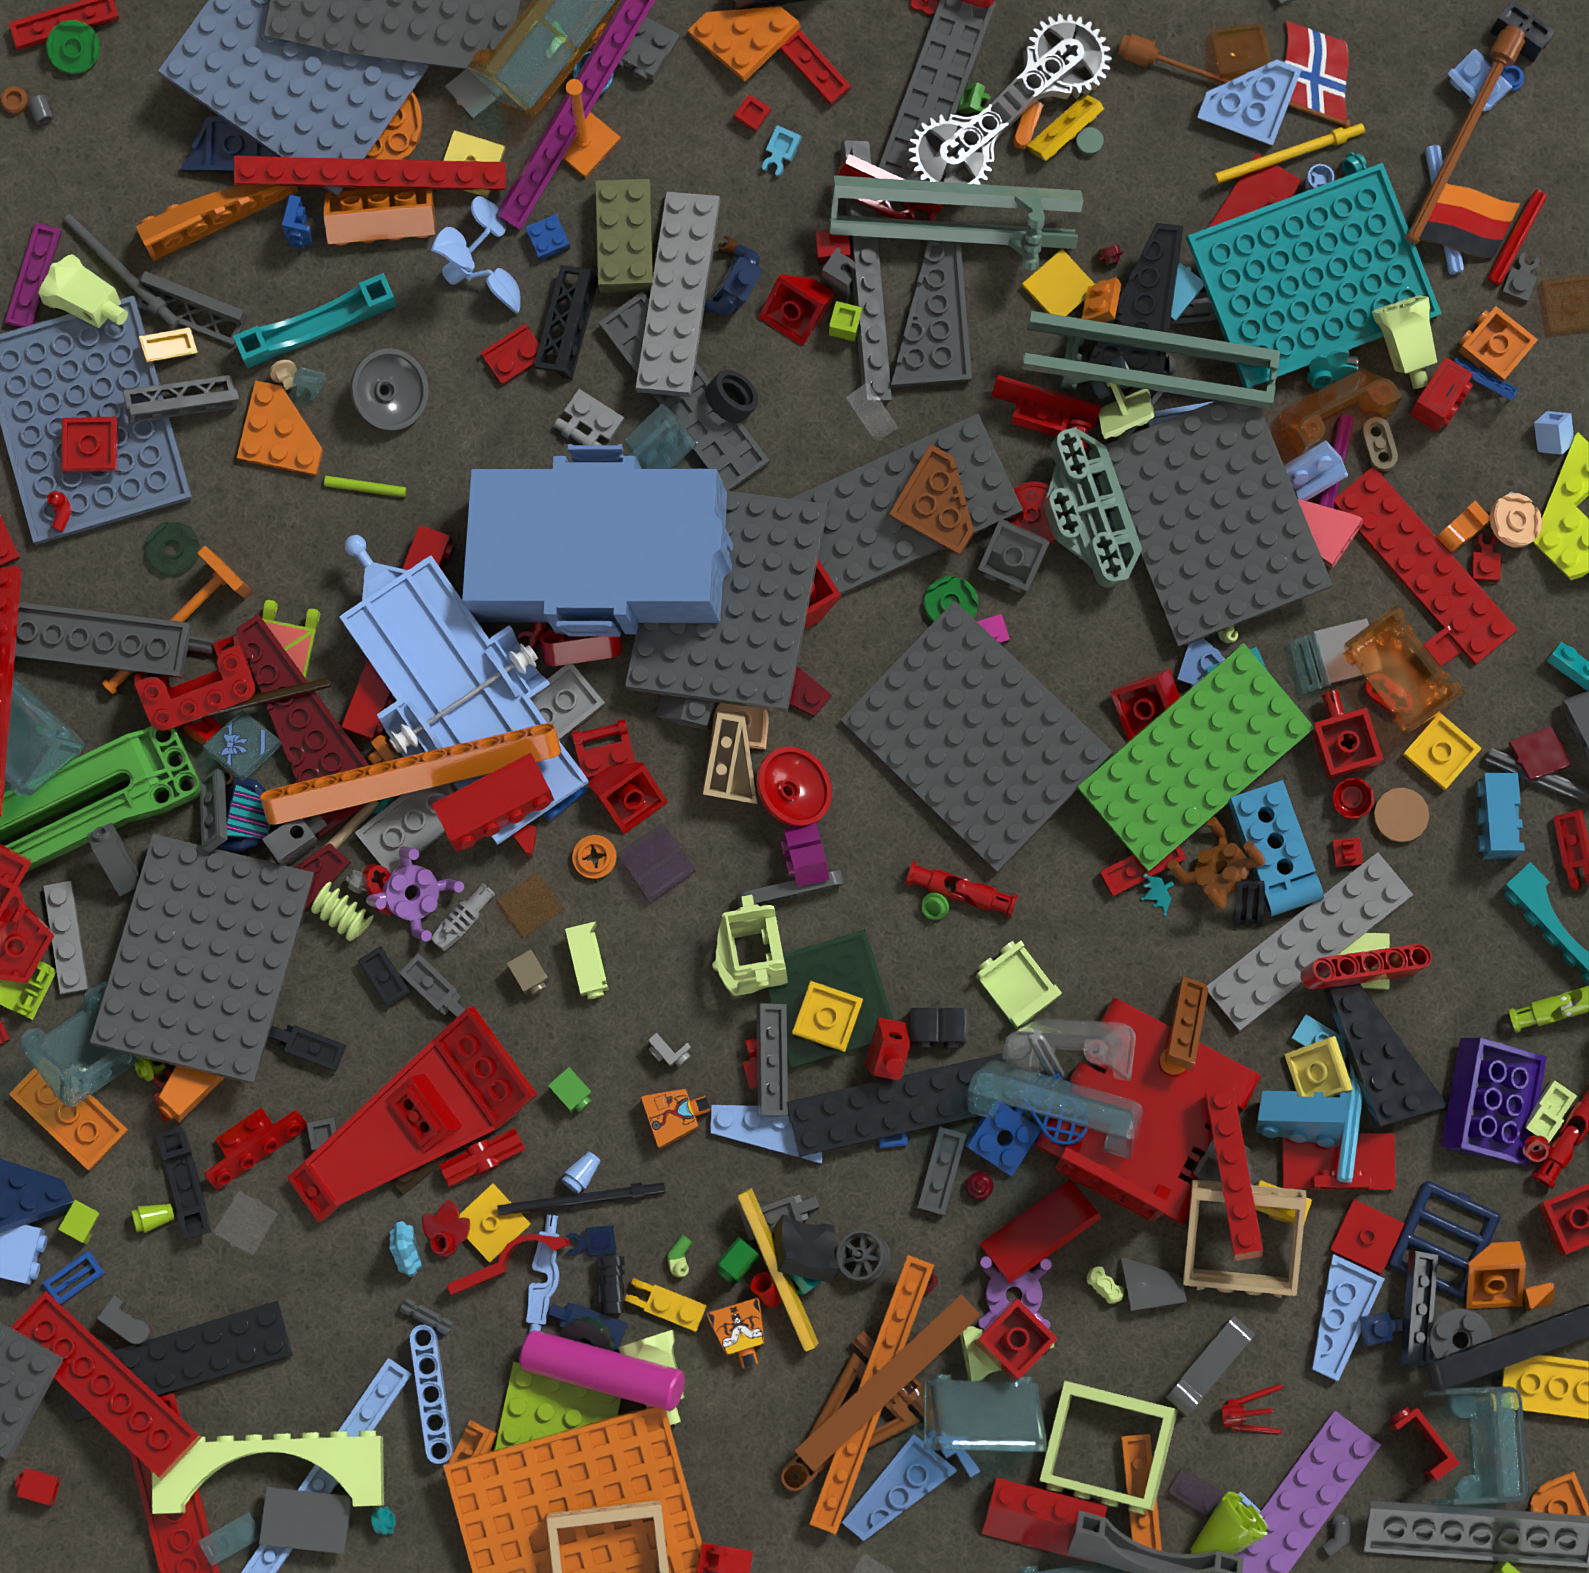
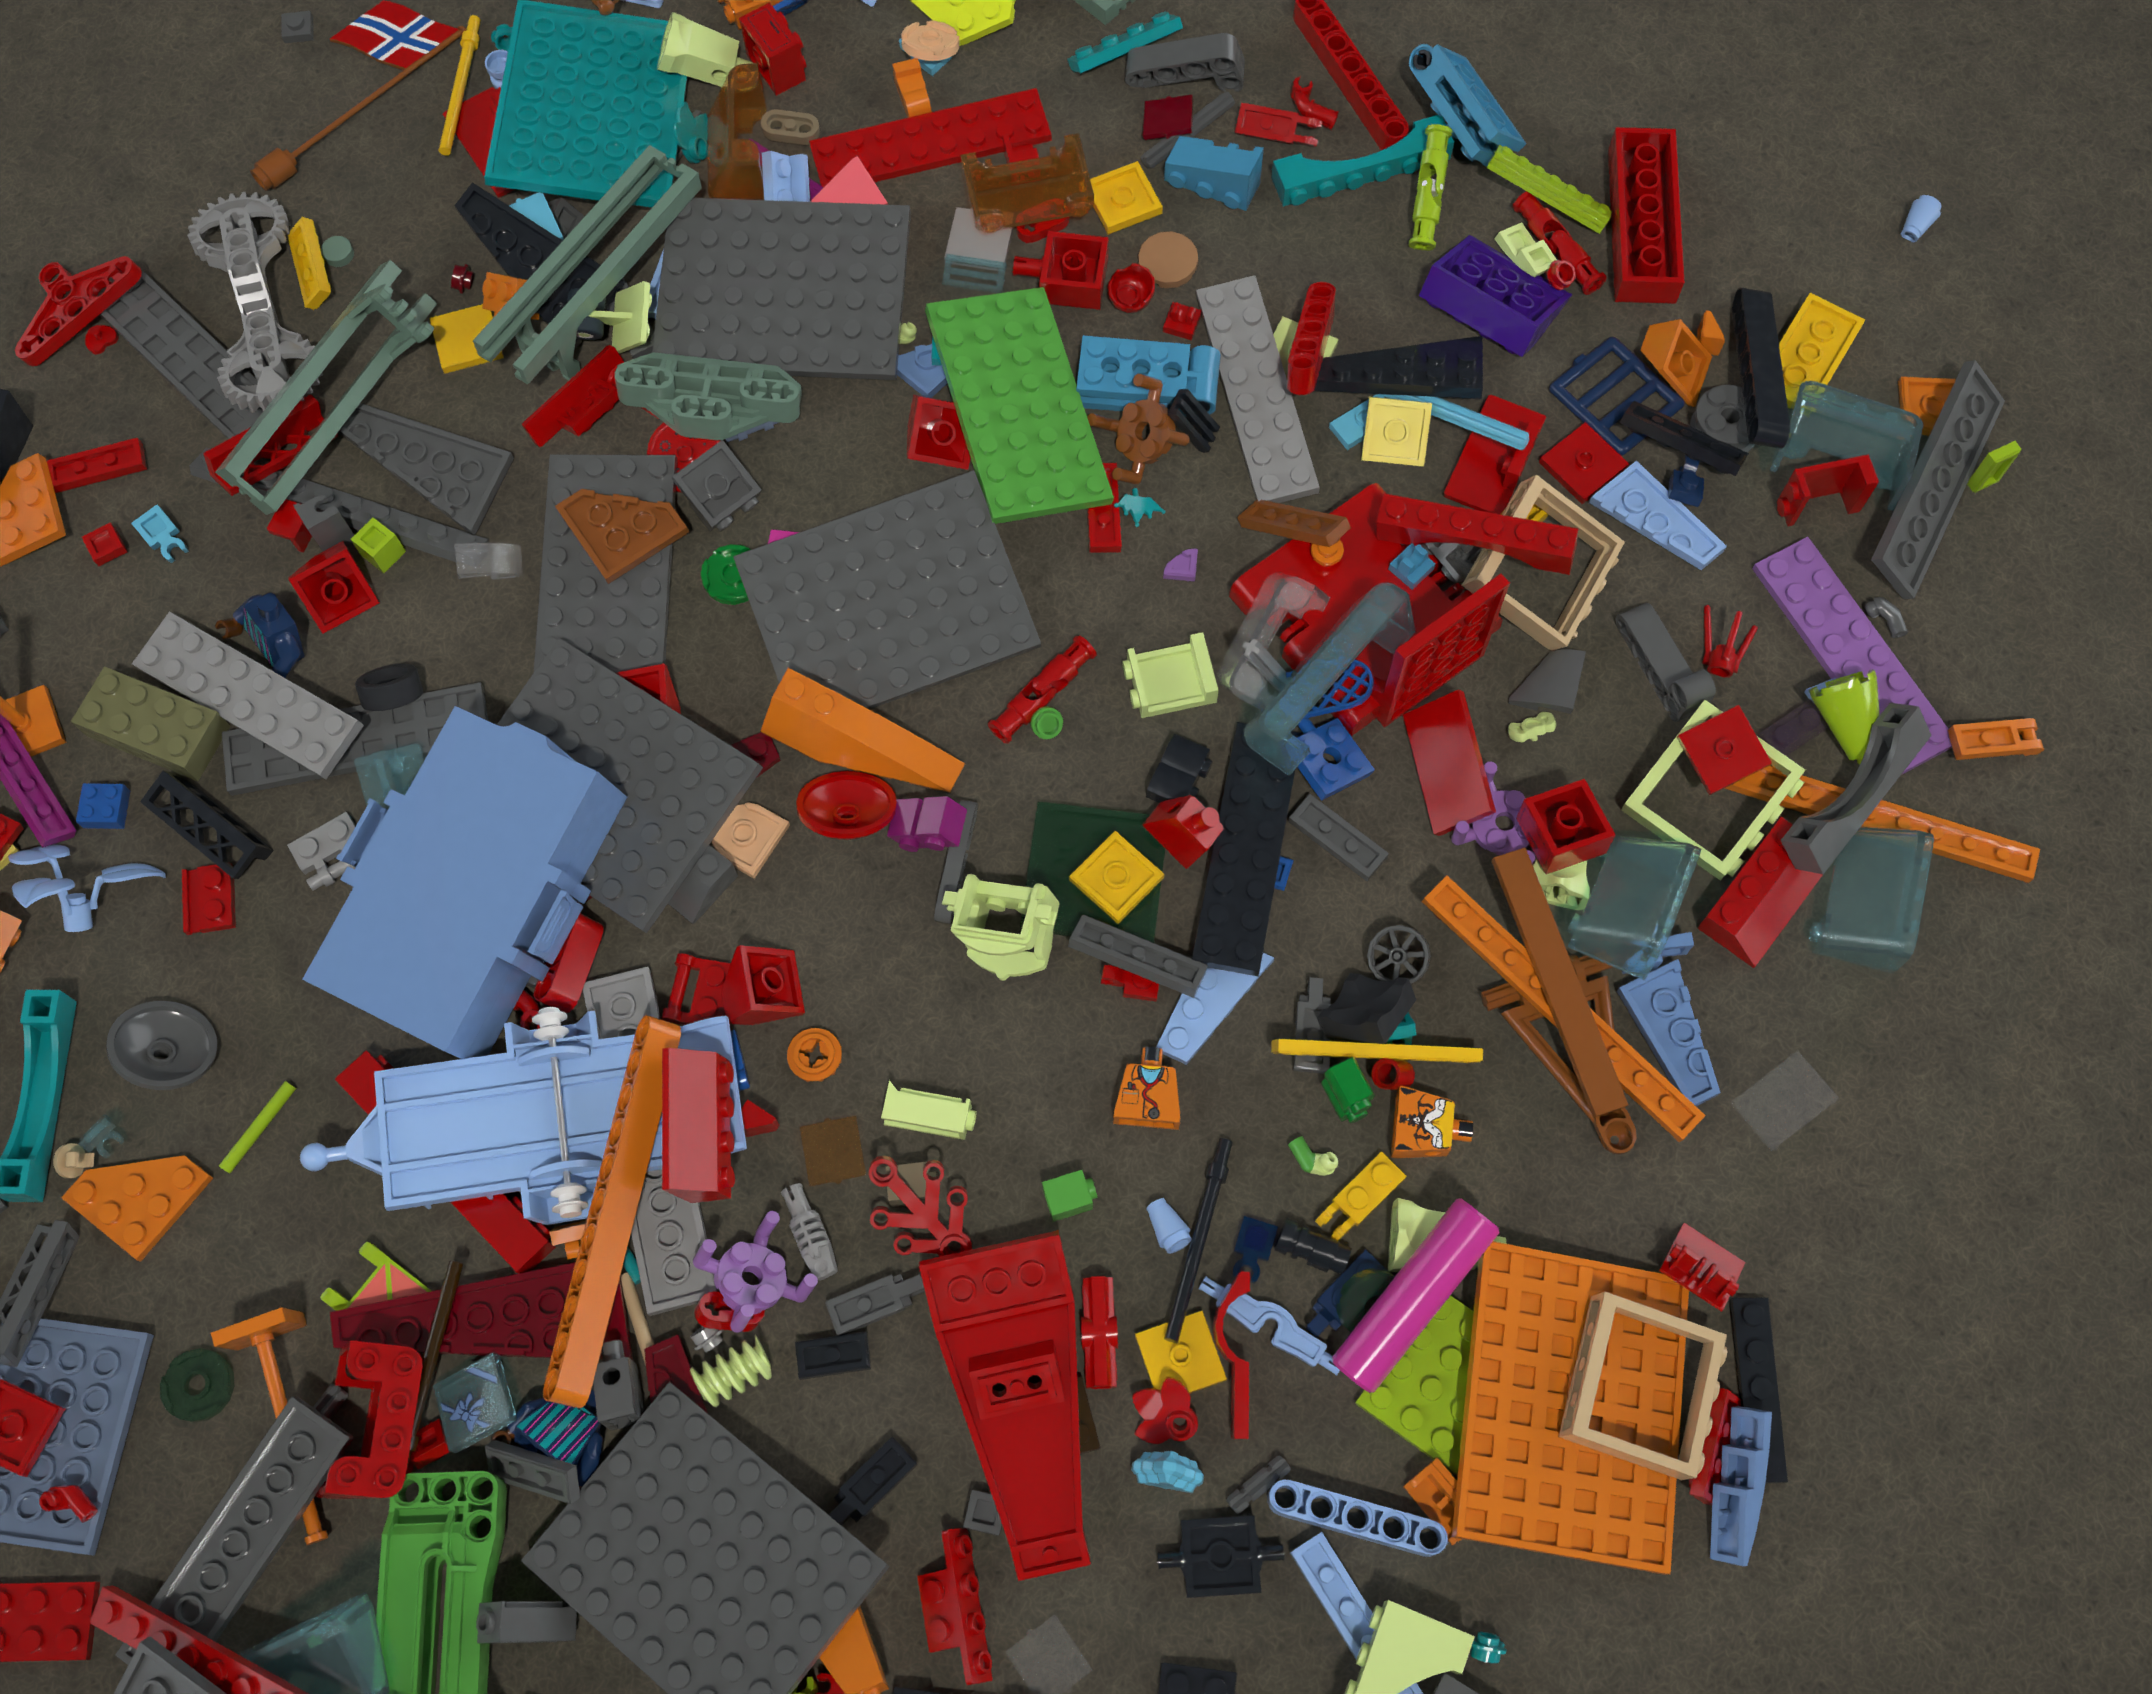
camera: 65 degrees left, 10 degrees down
(364, 1310) = (1220, 1556): none -> black plate
(508, 991) = (923, 1215): none -> red plant
(656, 862) = (855, 990): clear purple slope -> none
(661, 1050) = (1070, 1073): light grey bracket -> none
(729, 760) = (780, 857): tan wedge -> none
(852, 762) = (853, 737): none -> orange wedge
(972, 99) = (224, 330): bright green tile -> none
(979, 1185) = (1370, 806): dark red plate -> none
(1027, 125) = (285, 298): orange bar -> none
(1121, 951) = (1182, 566): none -> medium lavender tile
(1136, 1439) = (1724, 750): none -> red plate
(1191, 1133) = (1412, 565): none -> dark azure tile
(1239, 49) = (333, 84): clear orange tile -> none
(1253, 101) = (389, 91): light blue plate -> none
(1302, 1118) = (1443, 455): dark azure wedge -> none
(1486, 564) = (955, 90): red plate -> none

